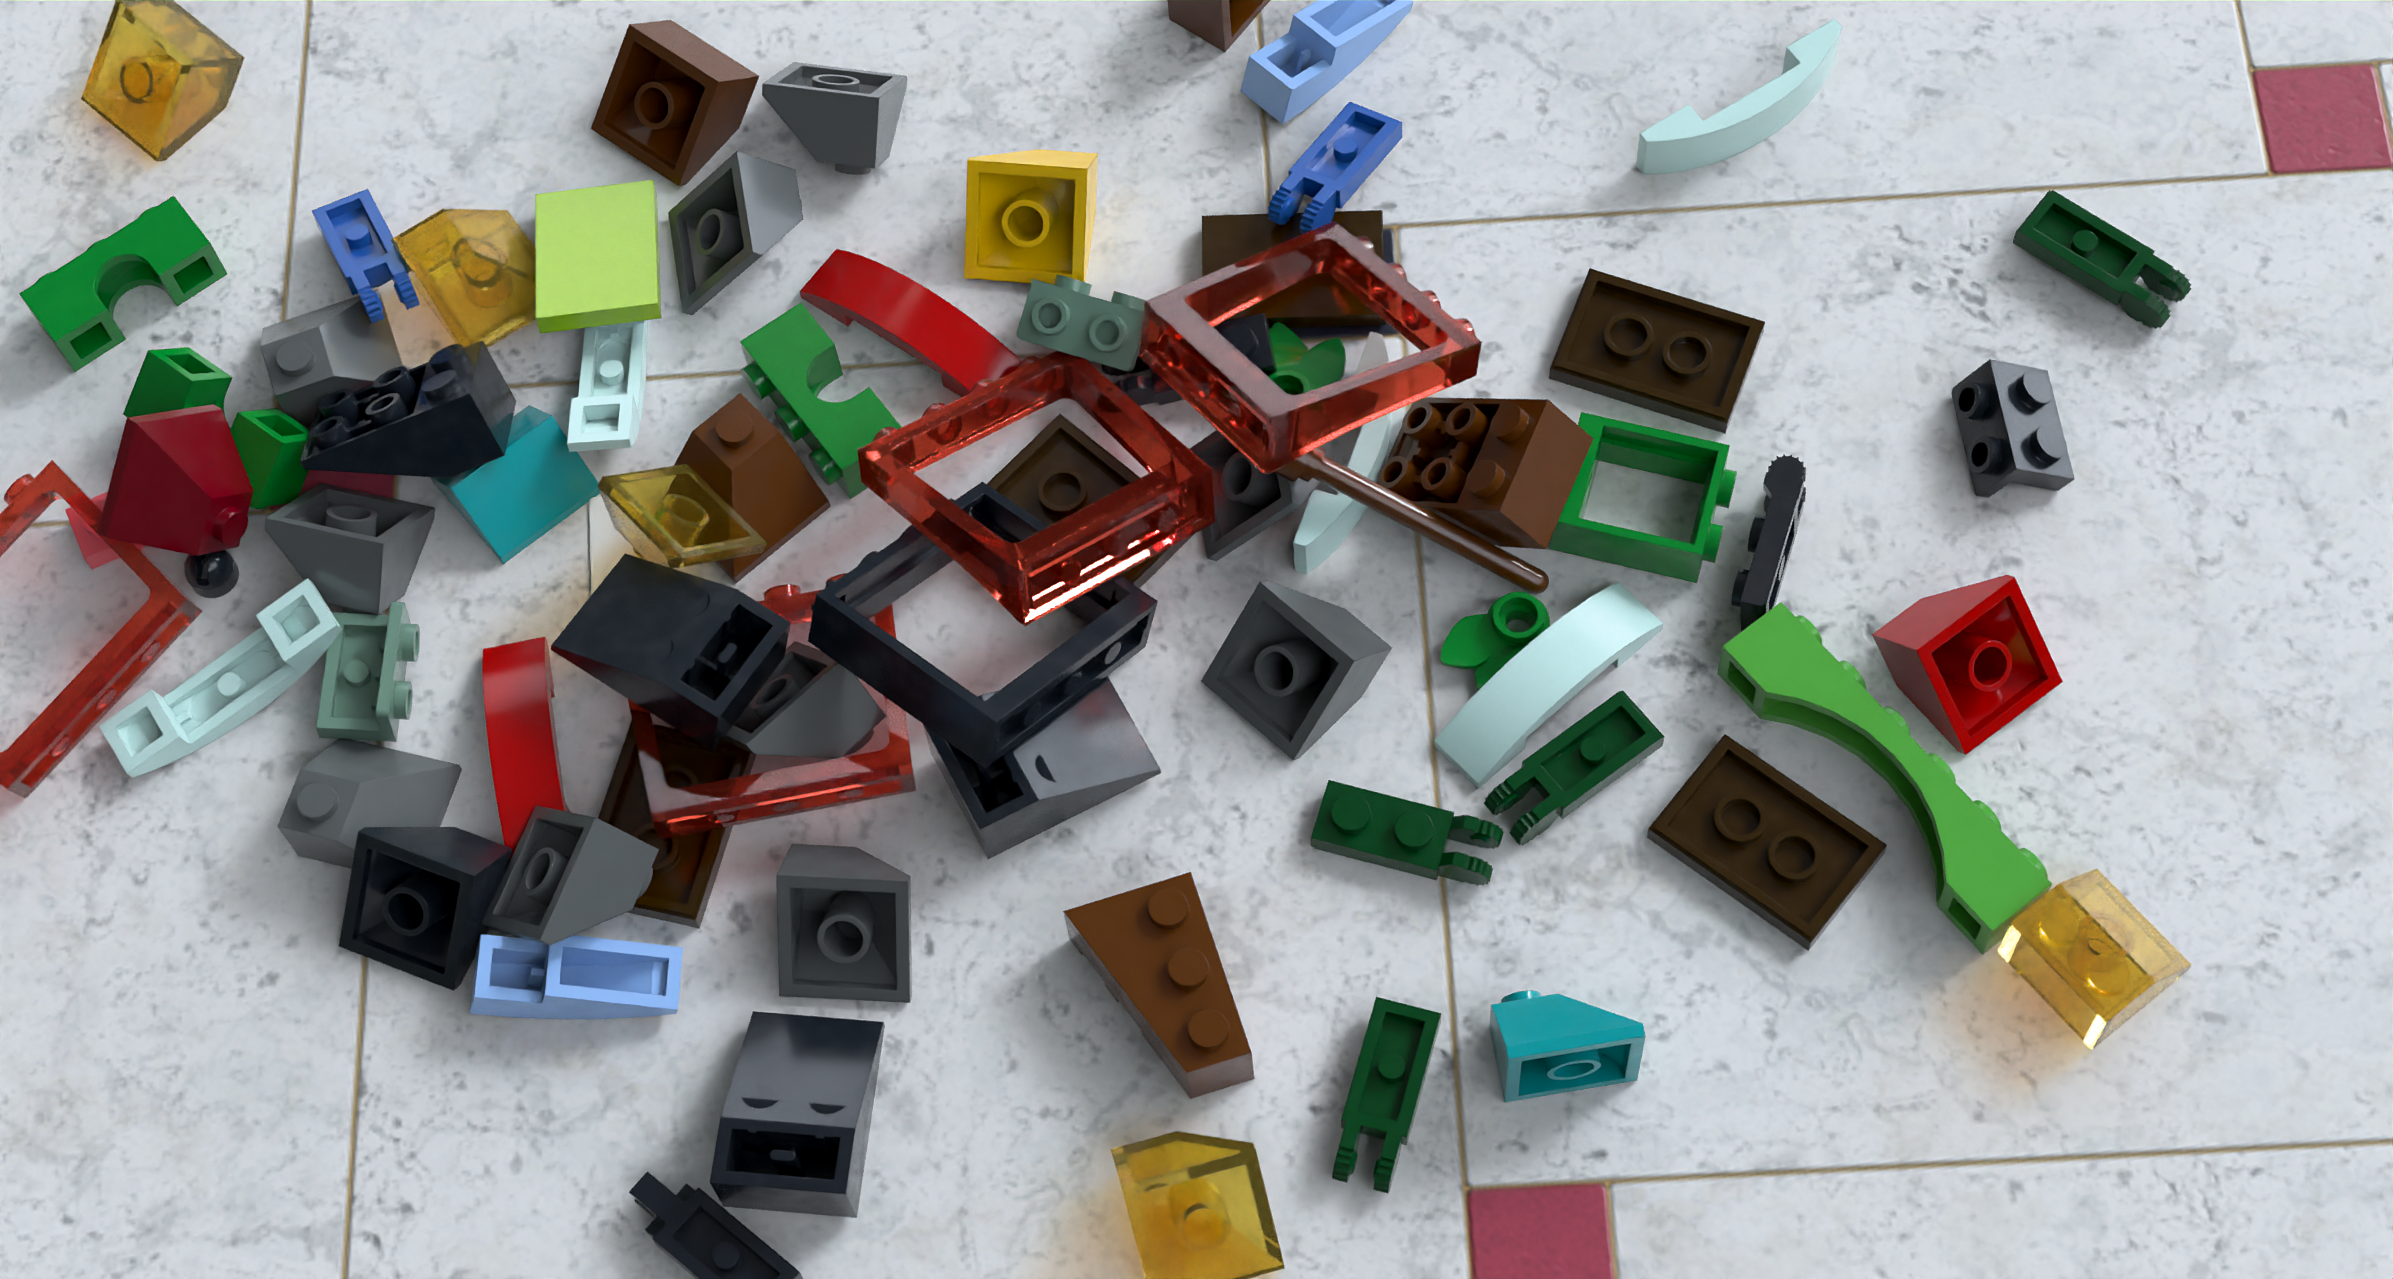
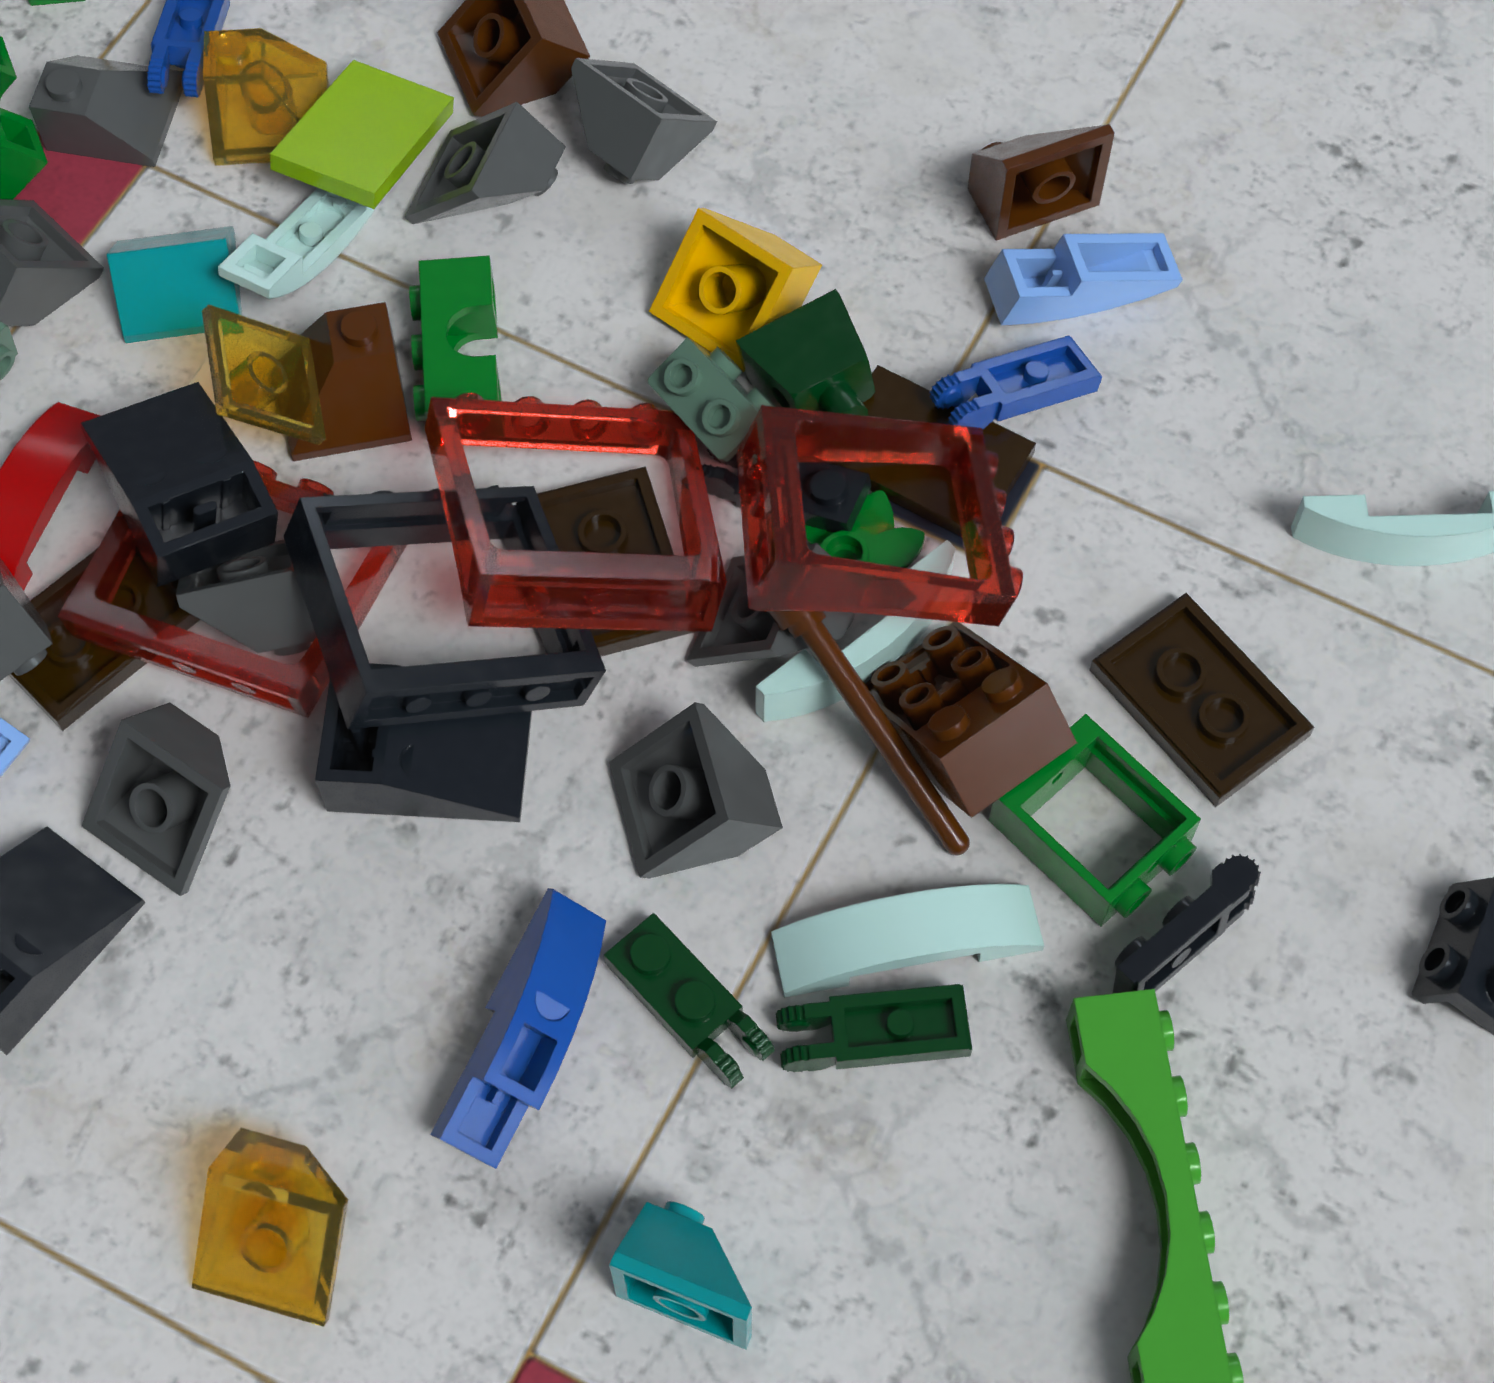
camera: 25 degrees right, 0 degrees up
(417, 419) = (125, 187): black slope -> none
(909, 318) = (576, 321): red slope -> none
(1147, 242) = (810, 359): none -> dark green torso
(1169, 978) = (395, 1008): reddish brown wedge -> none
(1299, 930) = (529, 1032): none -> blue slope
(1386, 1086) = (515, 1219): dark green hinge -> none
(1484, 640) = (874, 868): green plate -> none
(1766, 841) = (1007, 1202): dark brown tile -> none
(1969, 659) = (1302, 1145): red slope -> none

